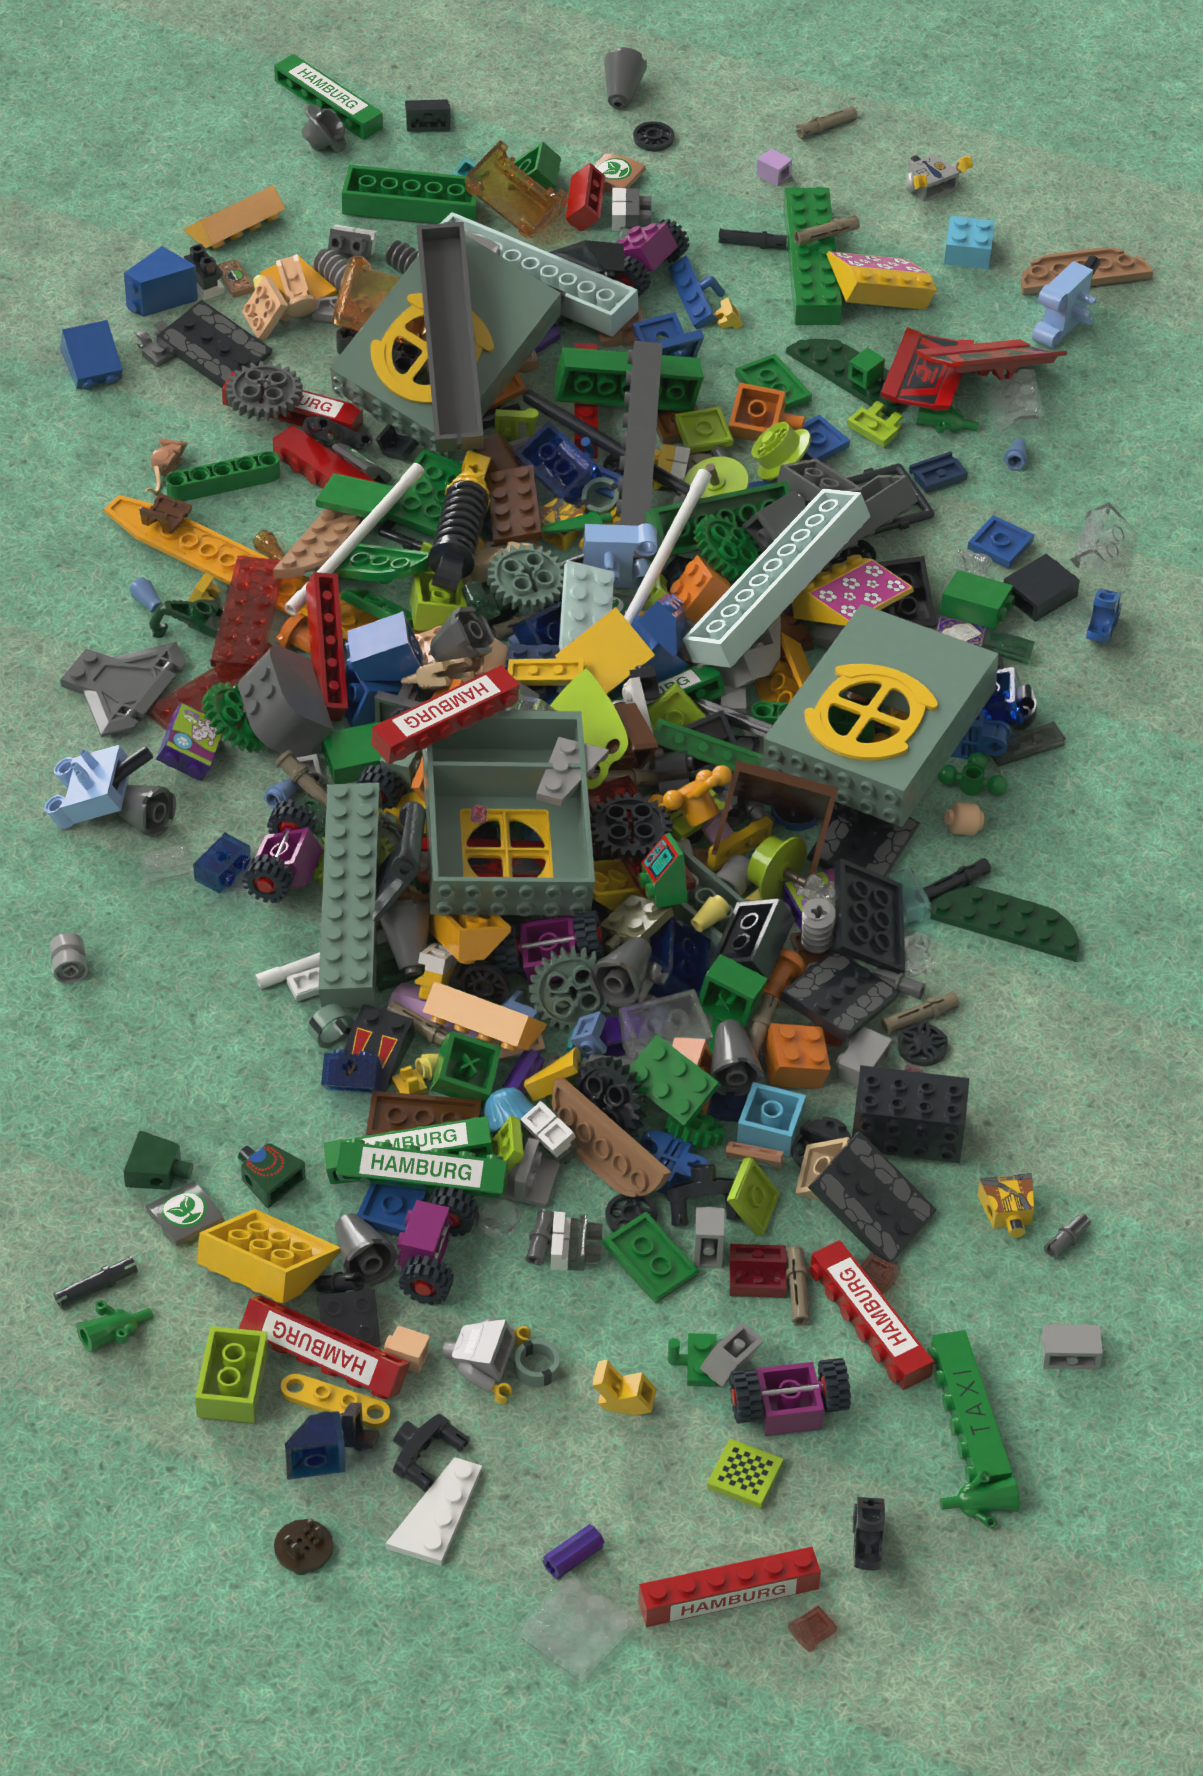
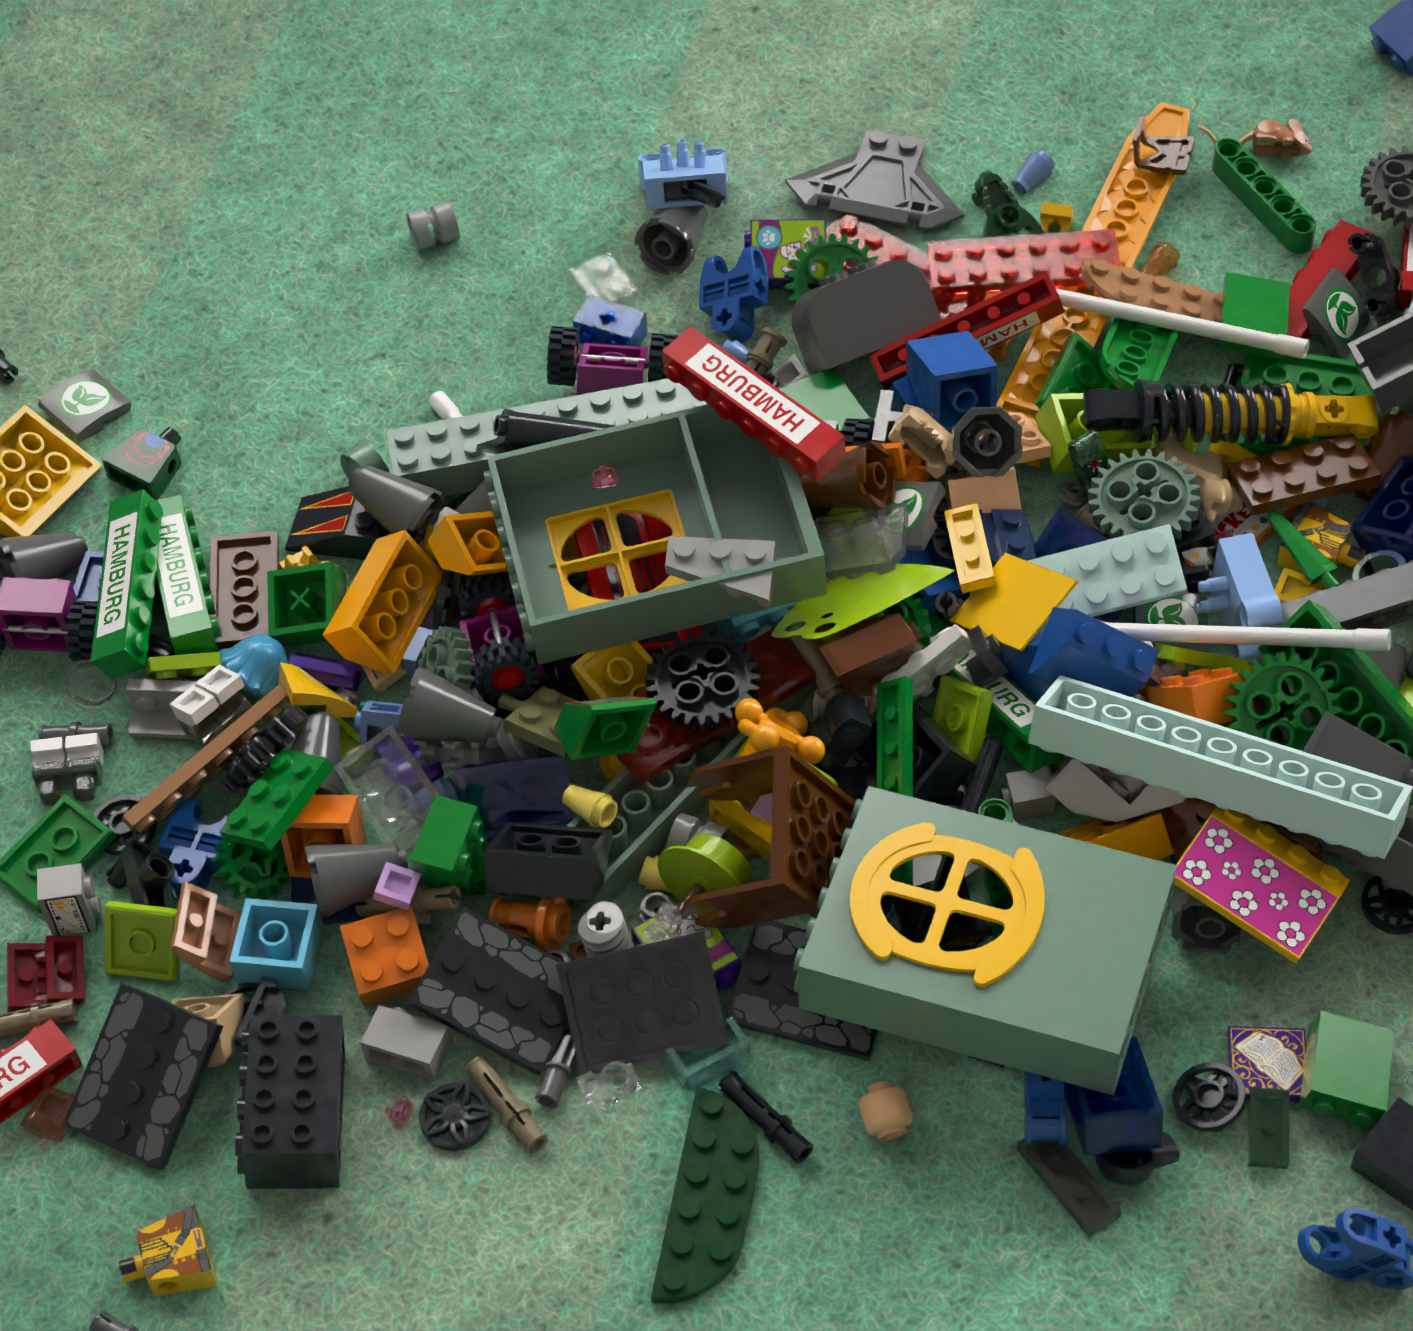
camera: 85 degrees right, 5 degrees up
(154, 1163) = (150, 360): dark green torso -> none
(219, 761) = (734, 293): none -> blue piece
(365, 1079) = (295, 502): clear blue brick -> none
(399, 988) = (396, 501): none -> dark grey cone
(760, 1022) = (396, 886): none -> lavender plate
(918, 605) = (1334, 975): black slope -> none
(973, 776) = (1006, 1115): green piece -> none

